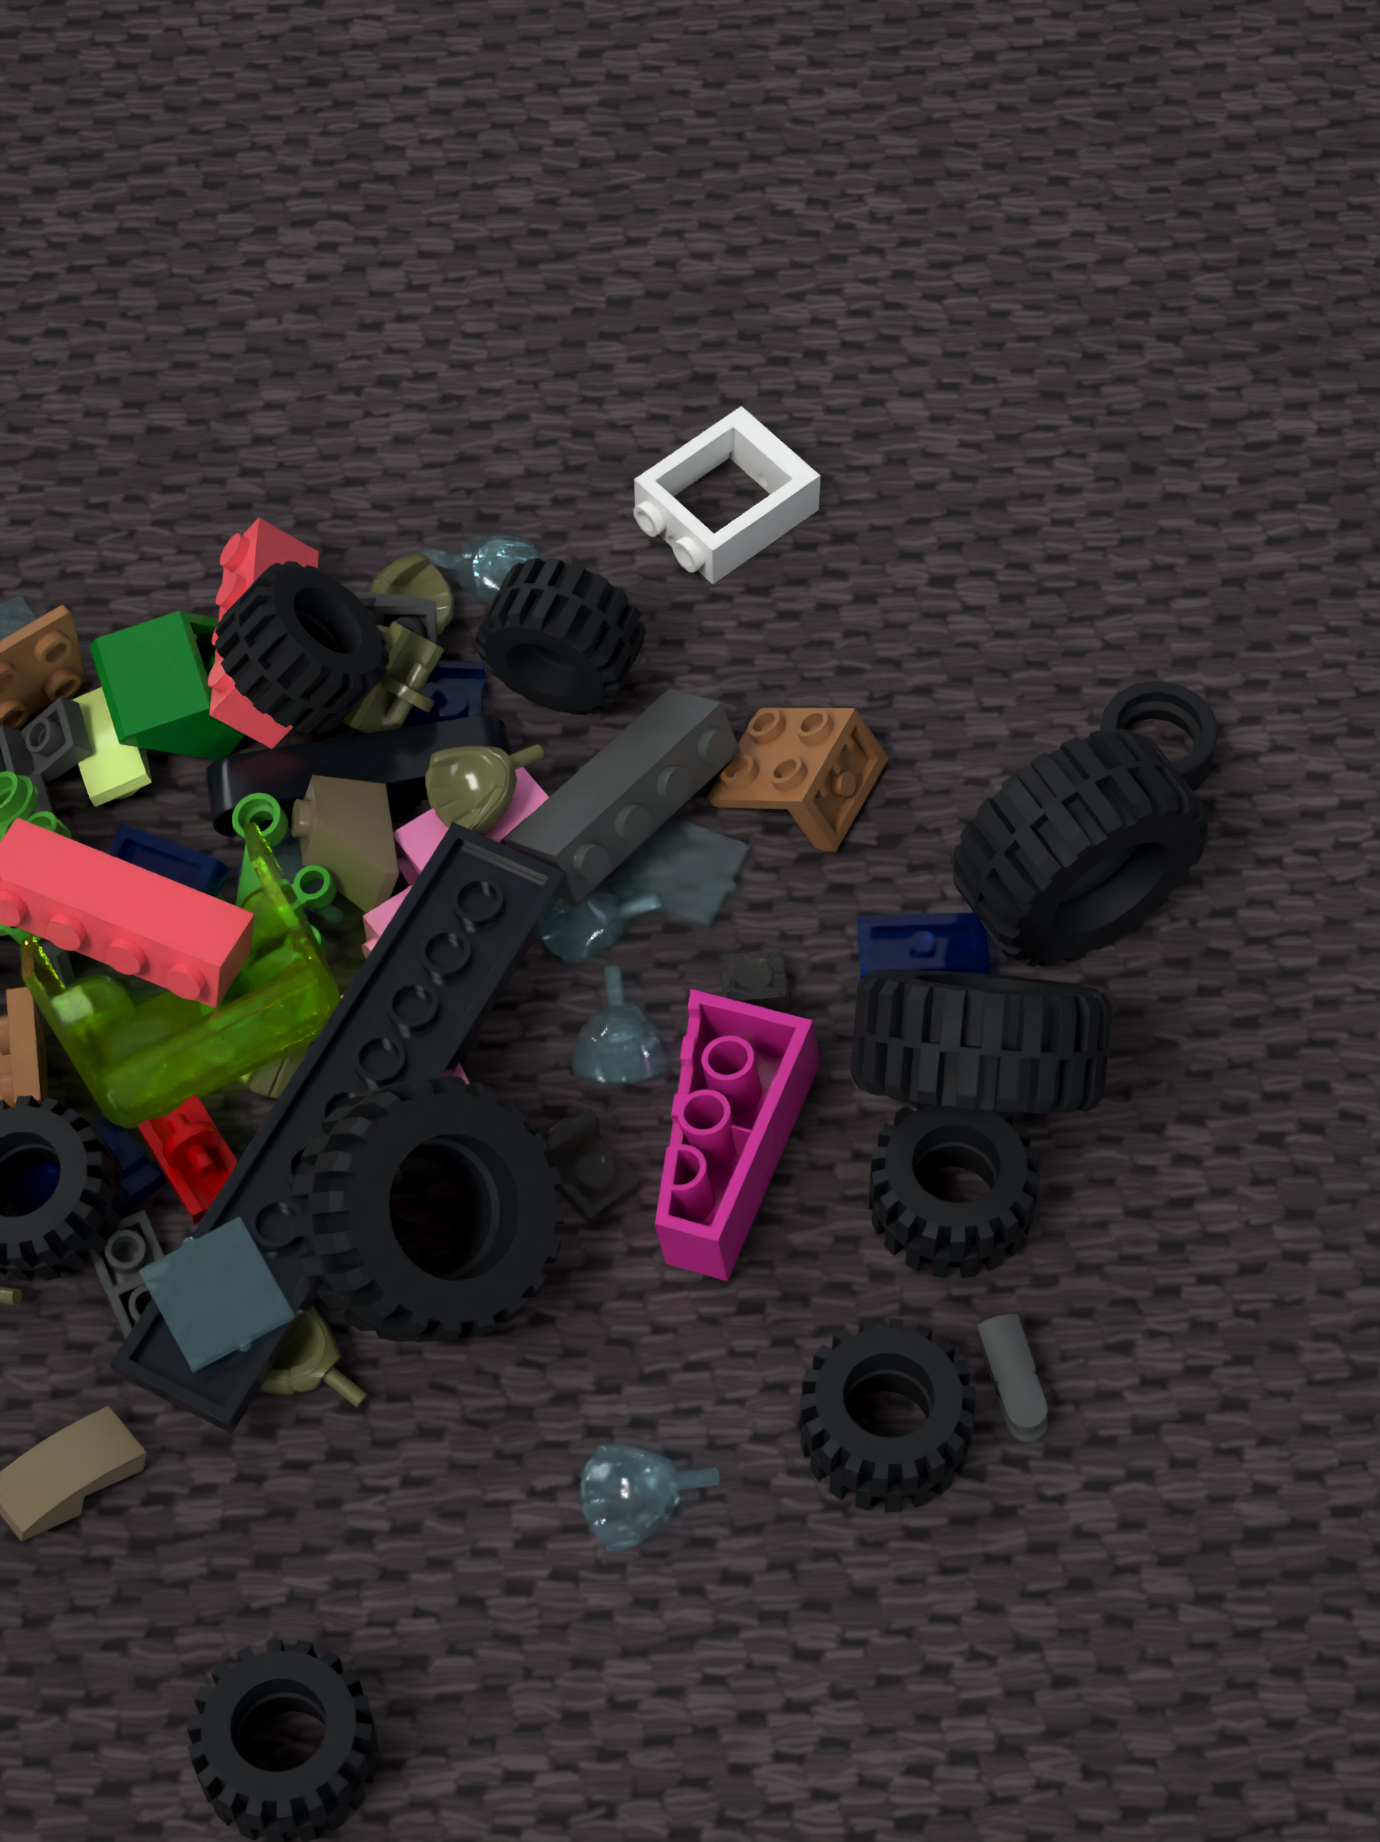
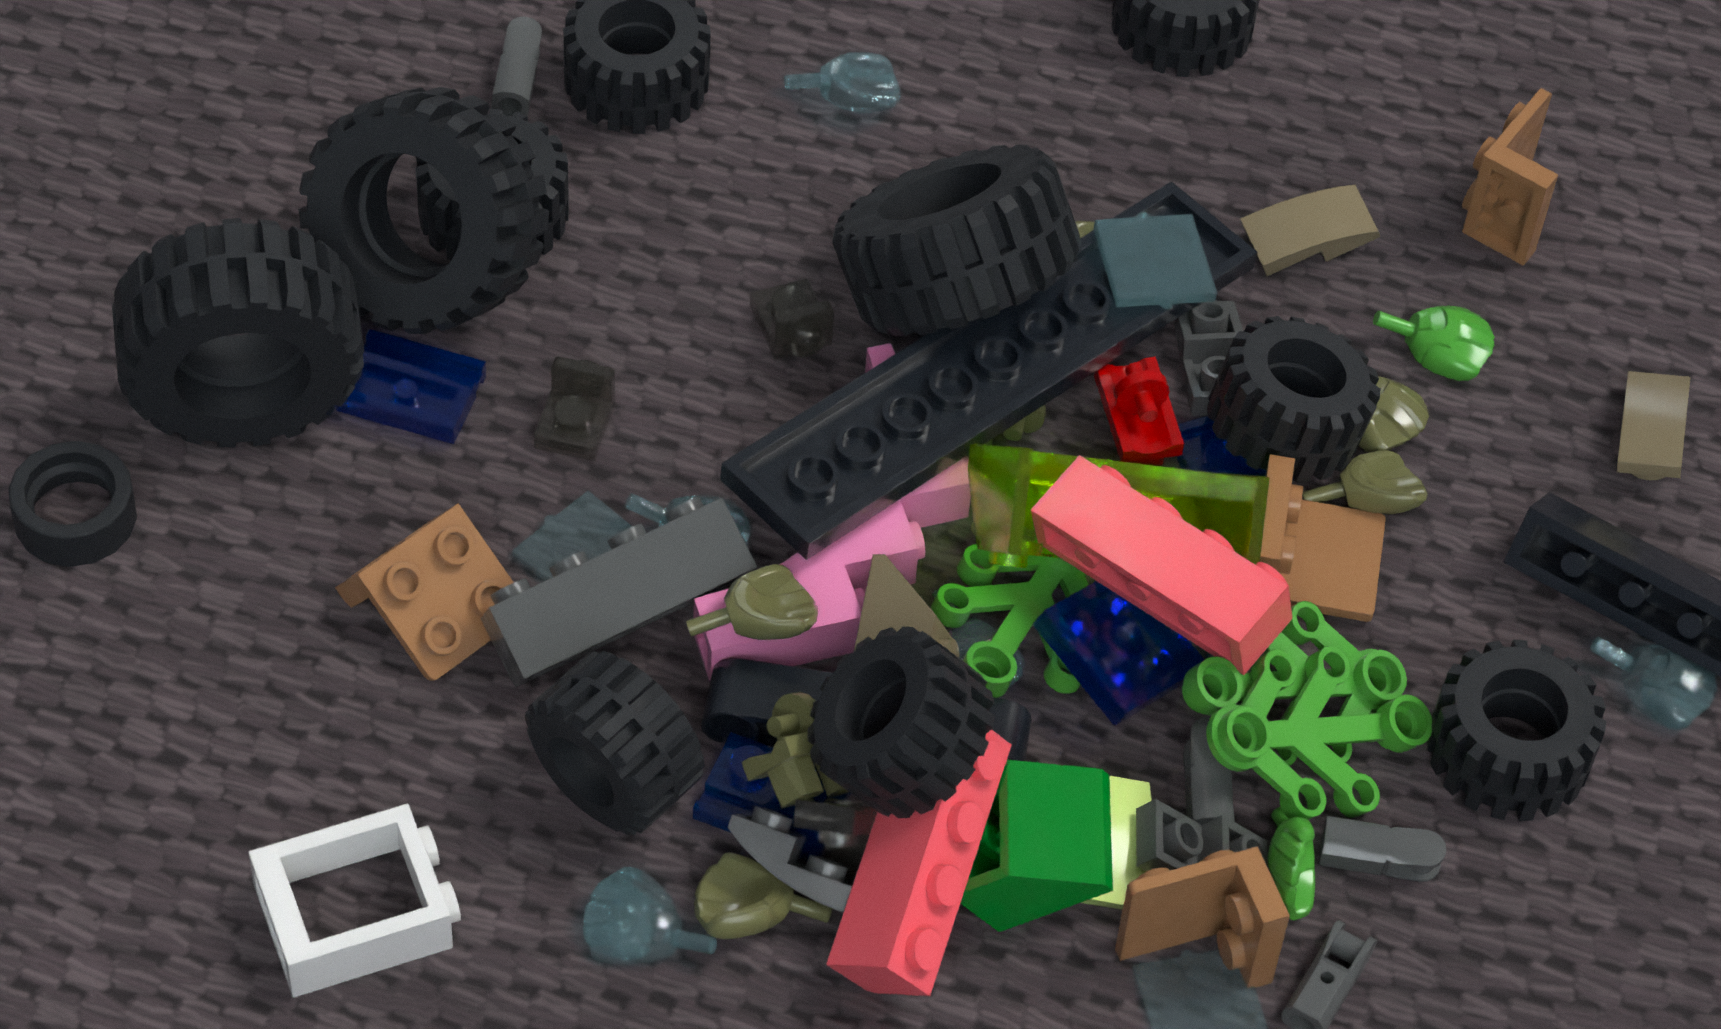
camera: 165 degrees left, 5 degrees down
(619, 1041) = (721, 412): clear light blue piece -> none
(731, 1121) = (659, 285): dark pink wedge -> none

